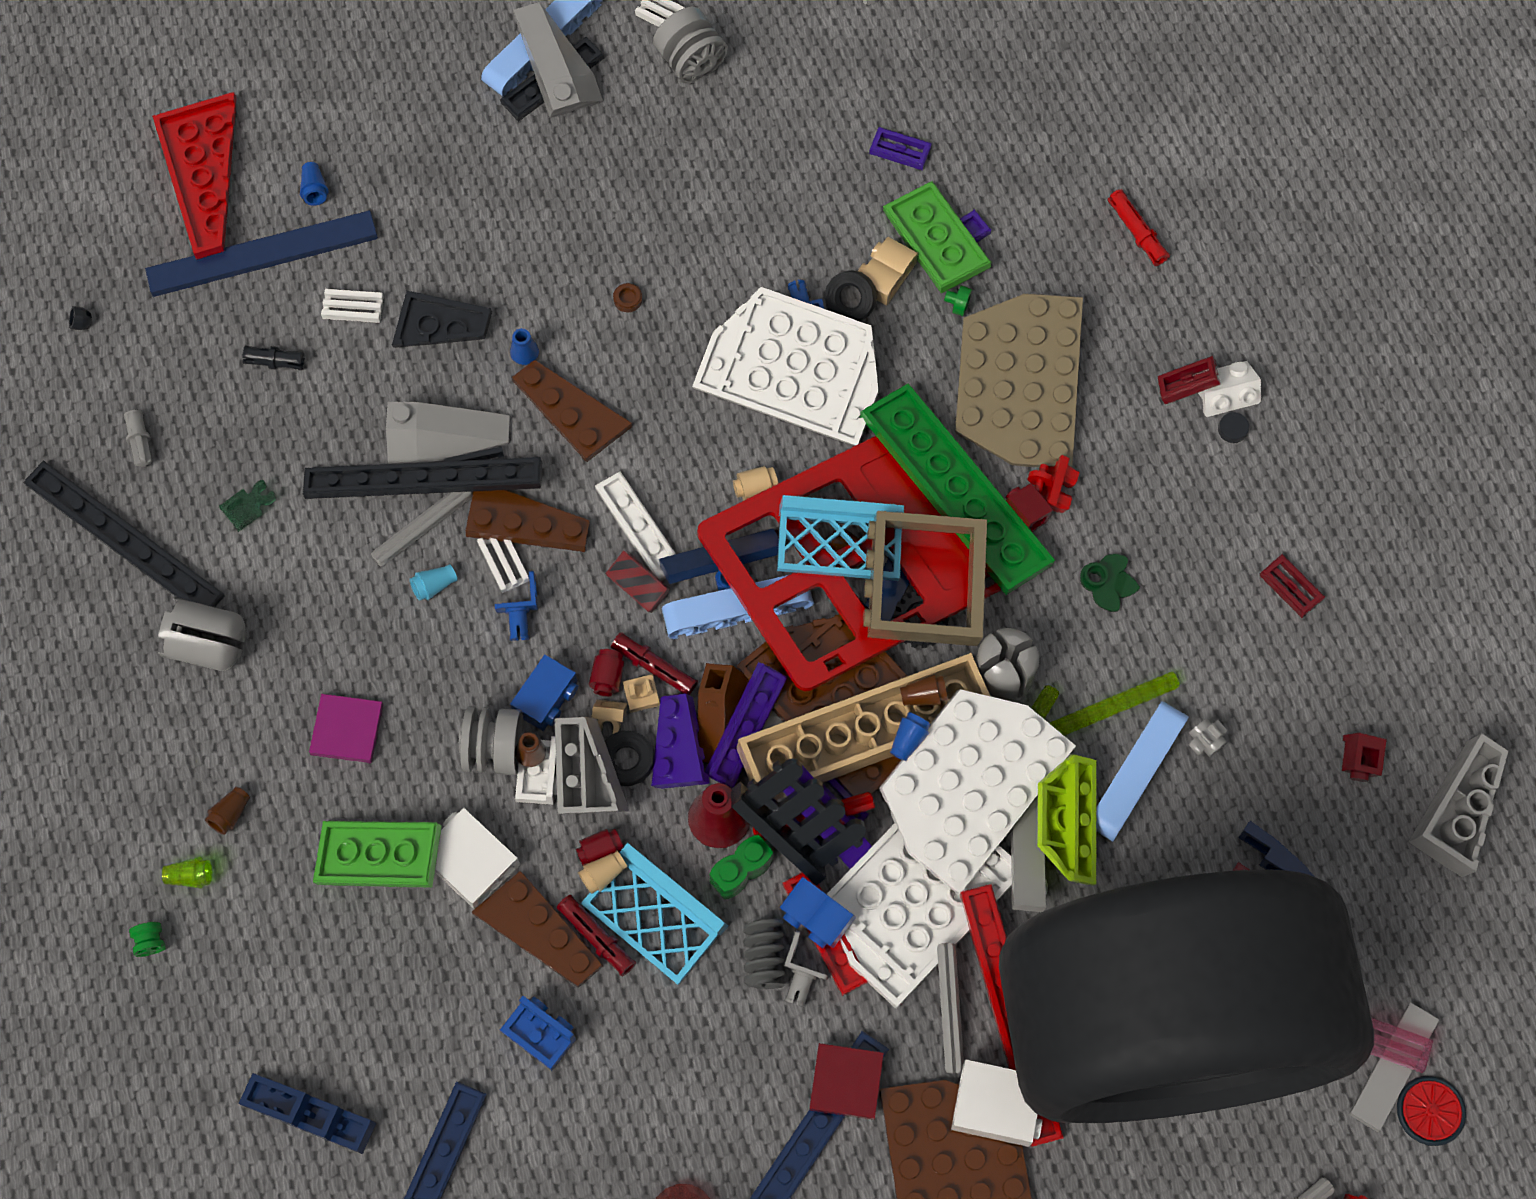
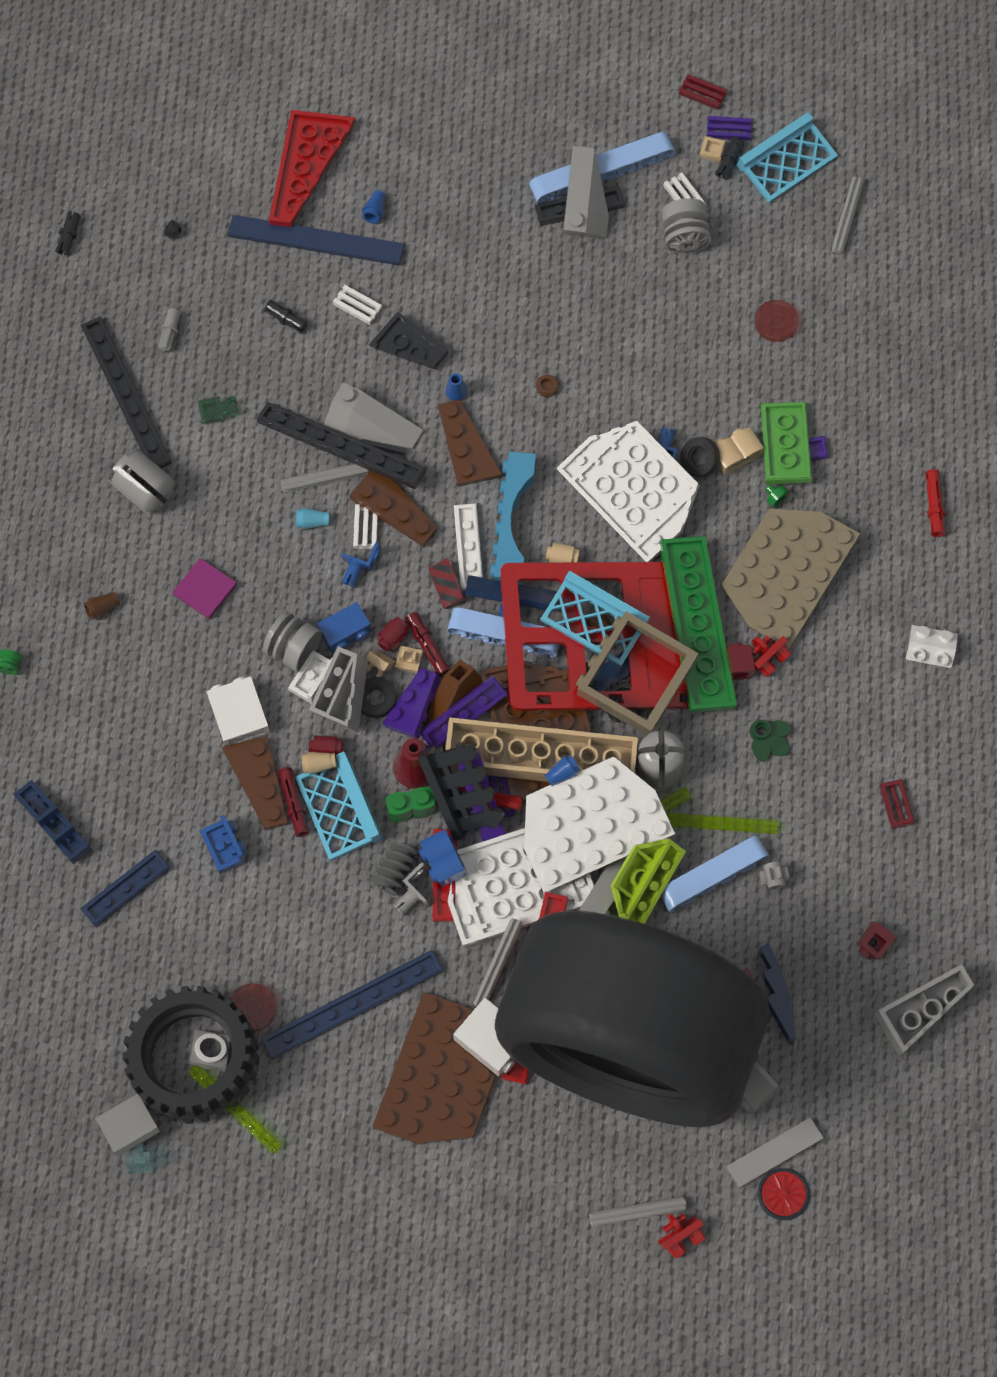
camera: 30 degrees right, 0 degrees up
(188, 873) = (56, 633): clear neon green cone -> none
(377, 854) = (180, 679): bright green tile -> none
(530, 756) = (313, 660): reddish brown cone -> none
(654, 415) = (519, 477): none -> dark azure arch
(846, 1081) = (403, 975): dark red tile -> none
(847, 106) = (776, 320): none -> clear red tile
(916, 162) = (810, 381): dark purple tile -> none
(926, 691) = (590, 746): reddish brown cone -> none
(1188, 384) = (905, 629): dark red tile -> none
(1233, 427) = (920, 675): black tile -> none
(1406, 1035) = (796, 1154): clear pink tile -> none

